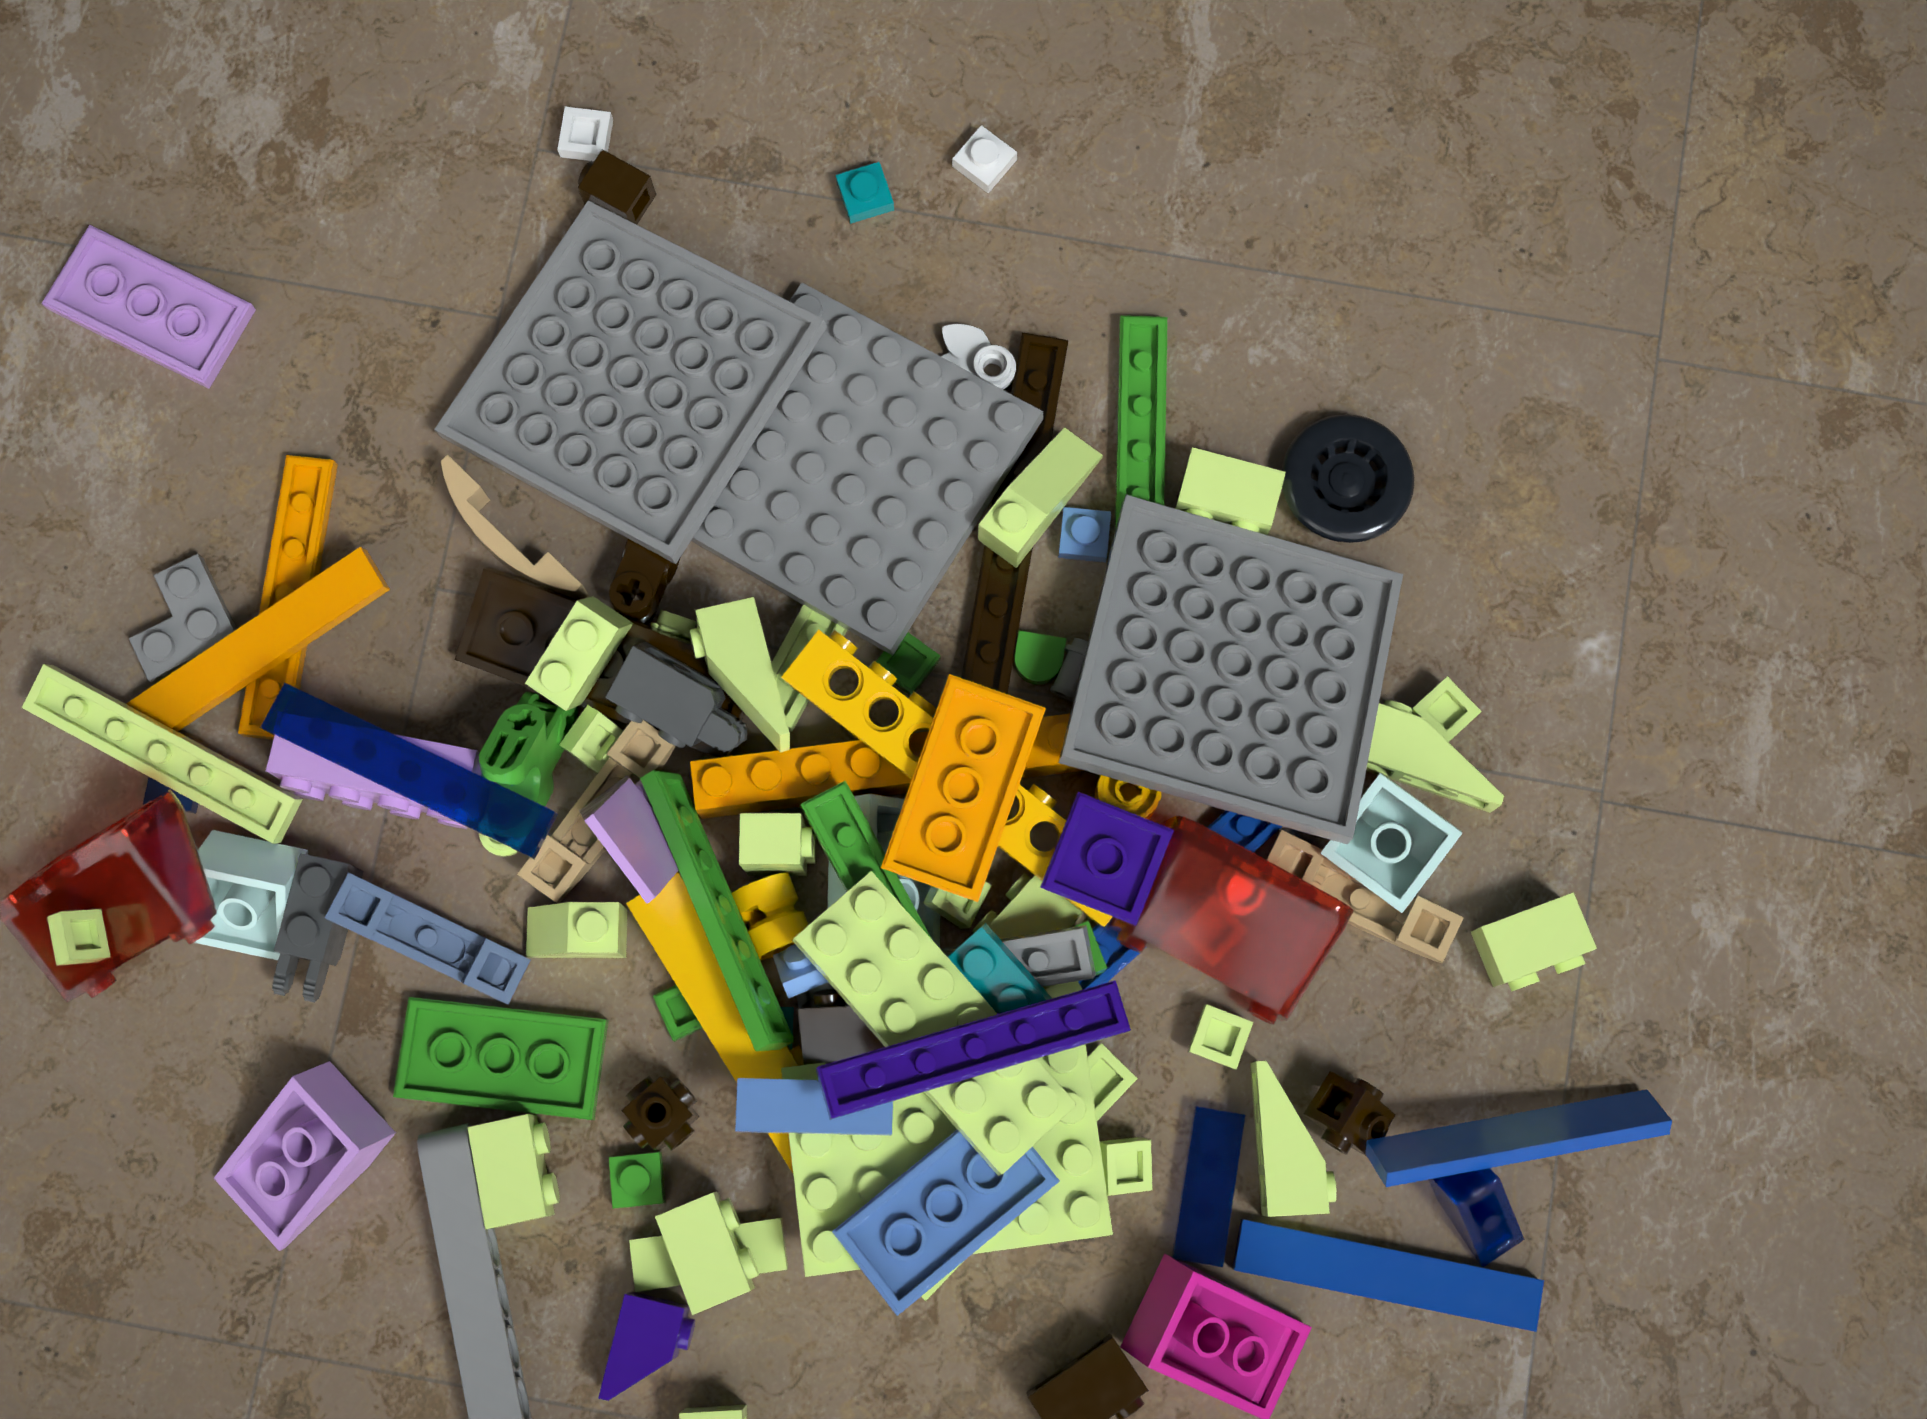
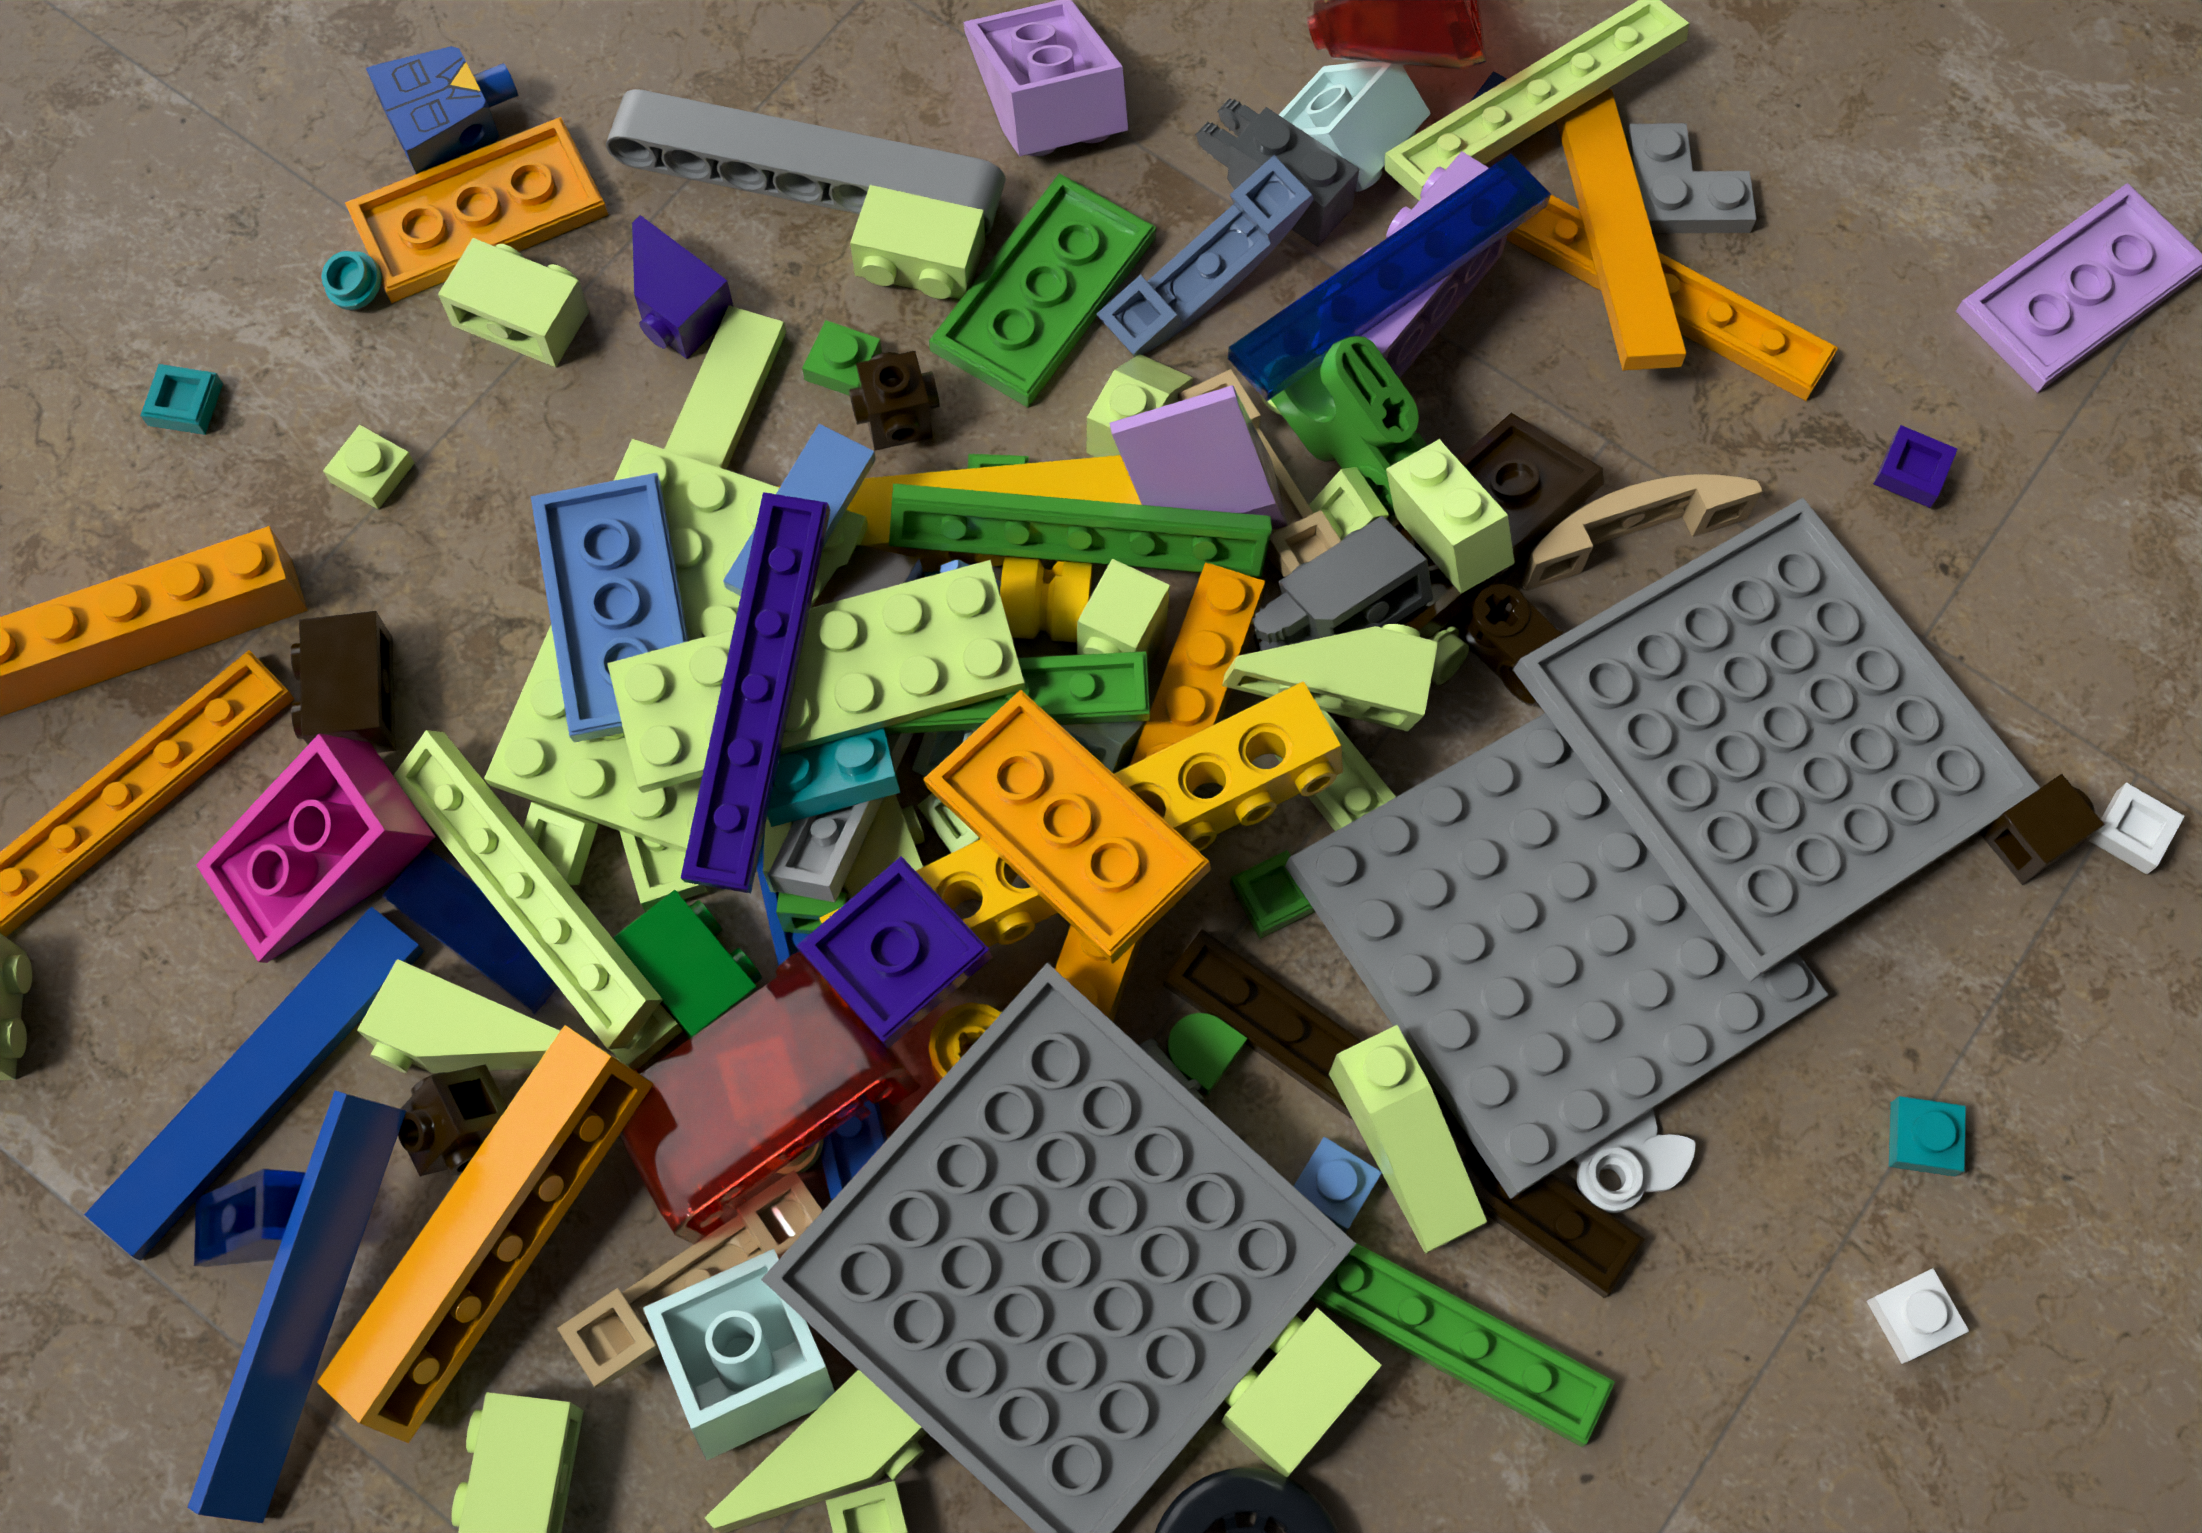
camera: 115 degrees right, 10 degrees down
(366, 366) = (1915, 466): none -> dark purple plate
(707, 1251) = (721, 373): yellowish green brick -> none
(1164, 1018) = (686, 963): none -> green brick
(1169, 1165) = (527, 890): none -> yellowish green plate
(1409, 1042) = (483, 1236): none -> light orange brick

